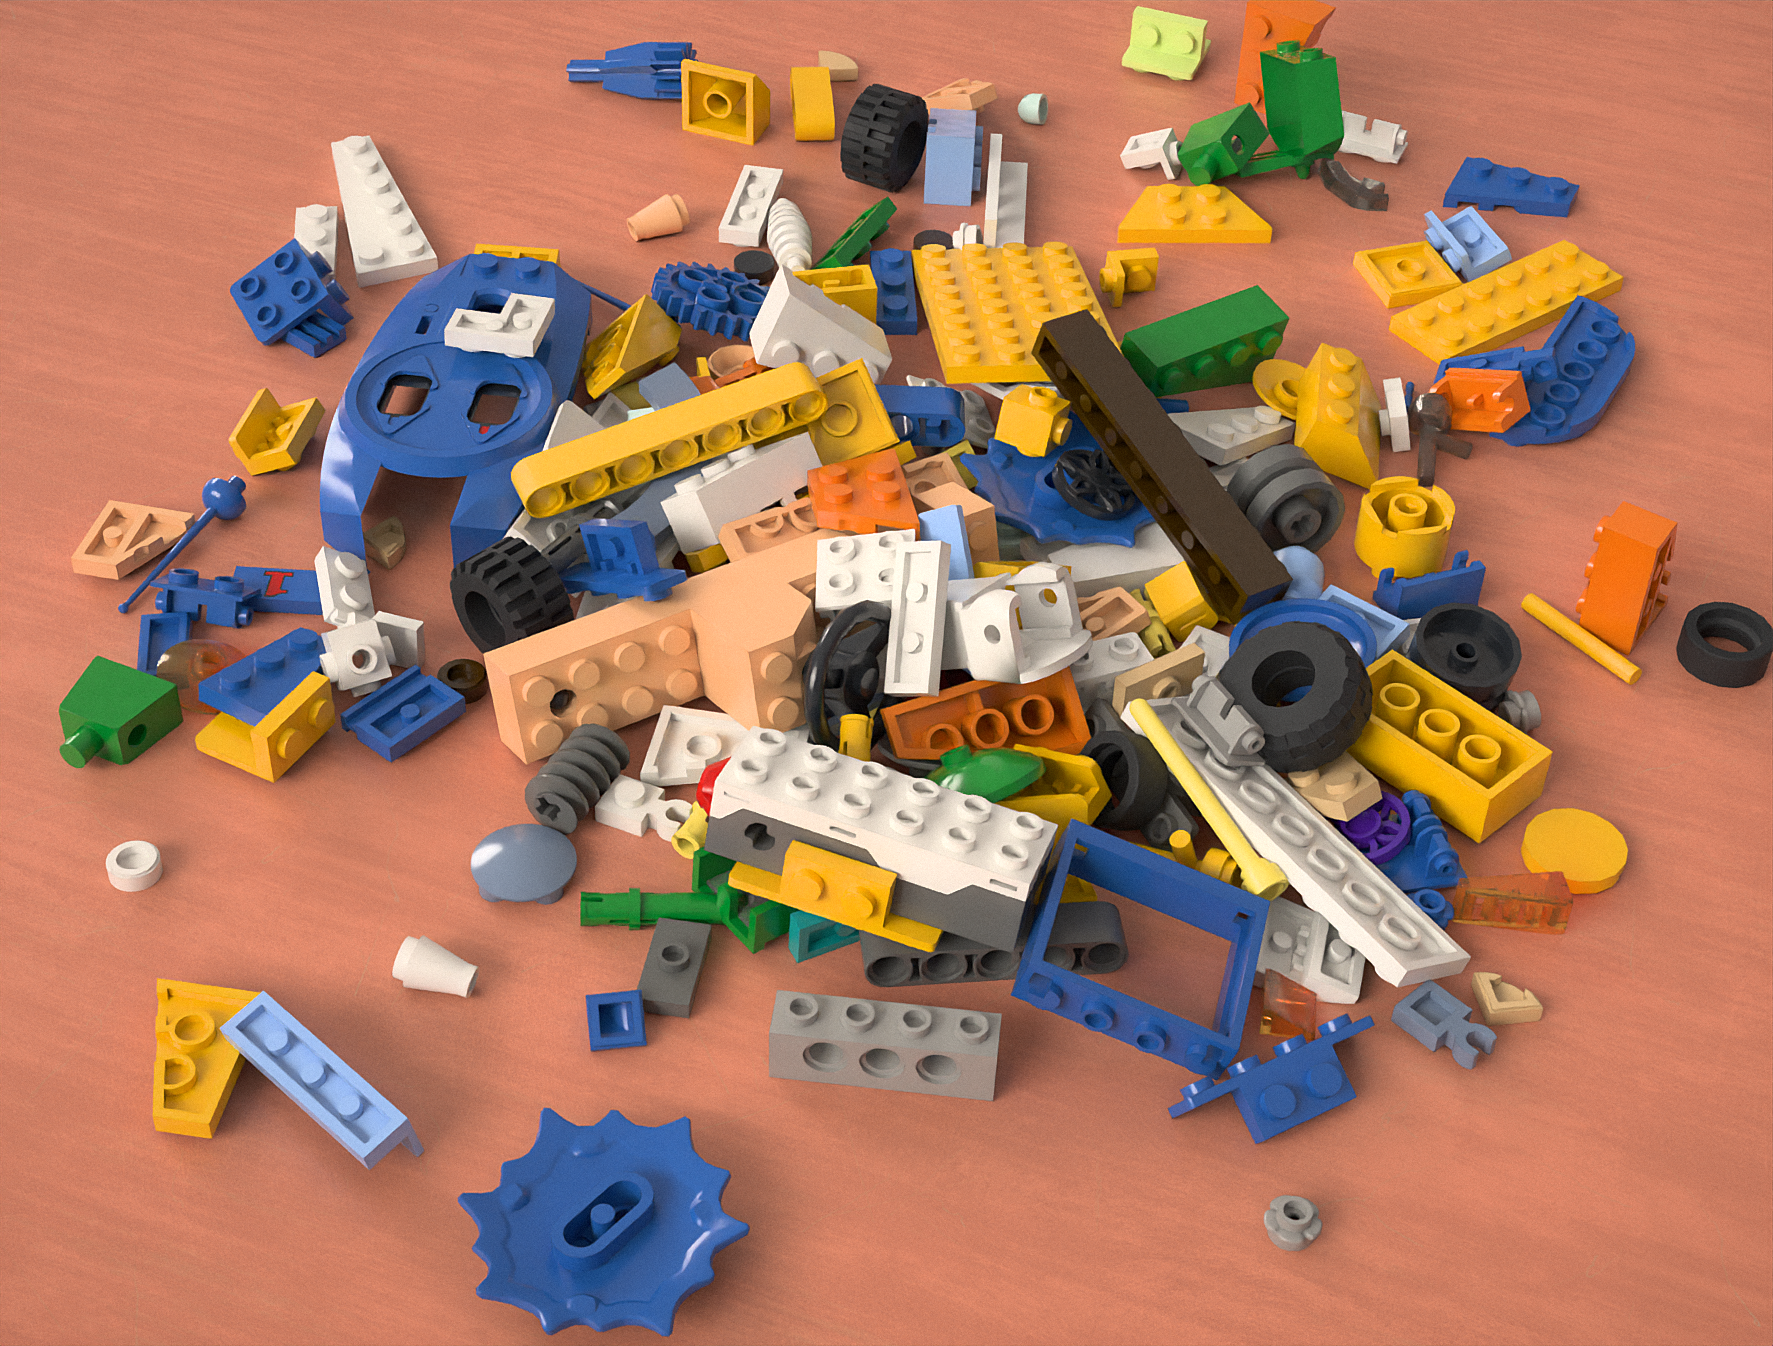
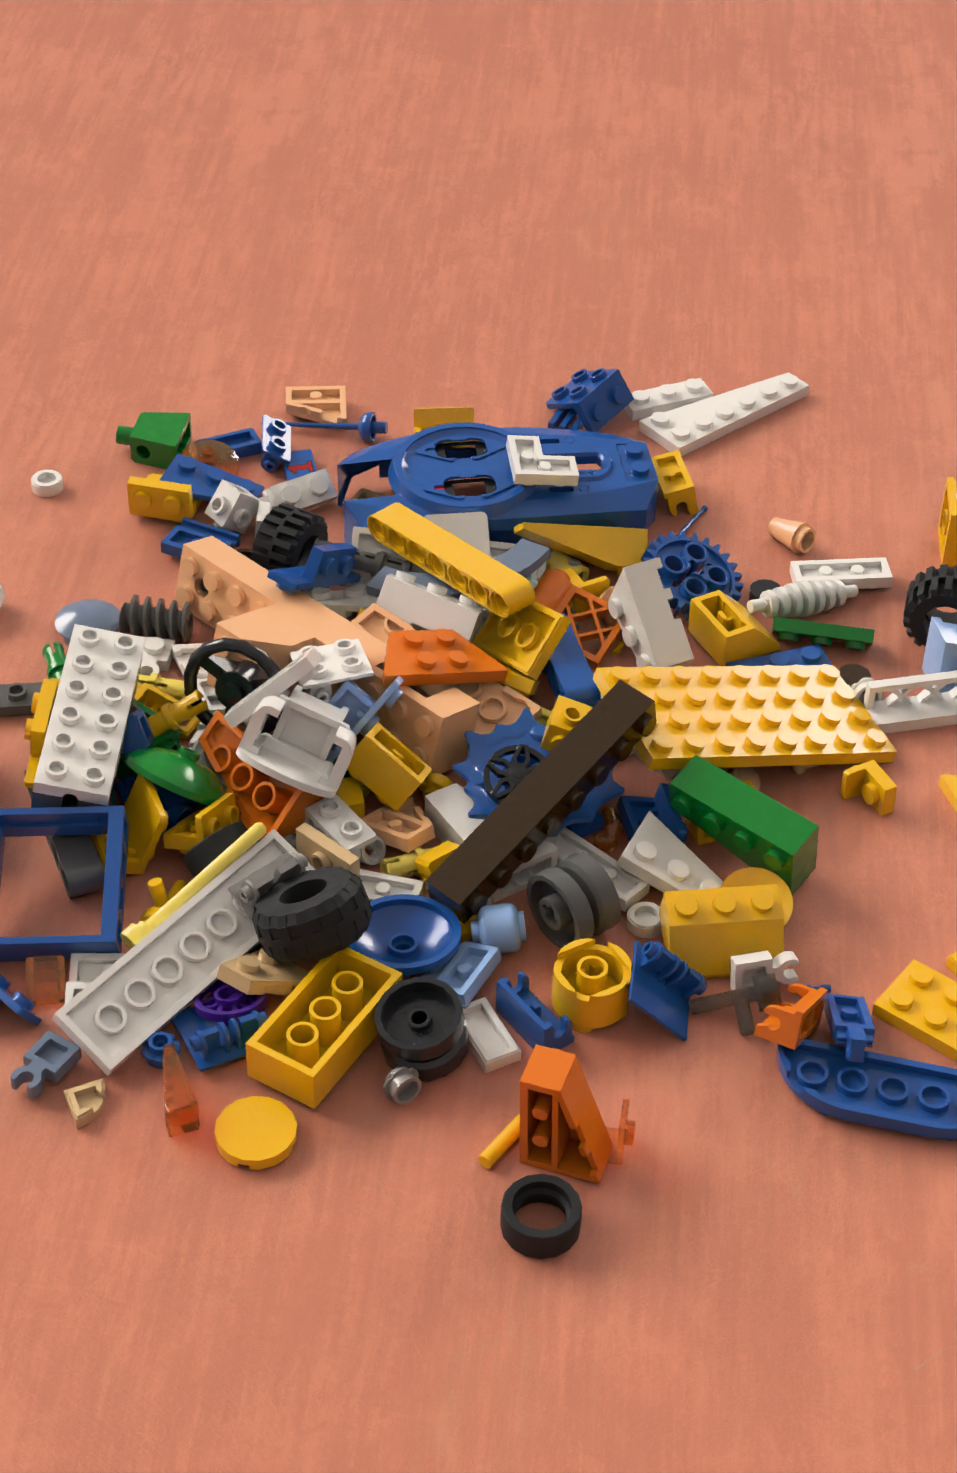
camera: 75 degrees right, 0 degrees up
(1405, 461) = (663, 986): none -> blue hinge

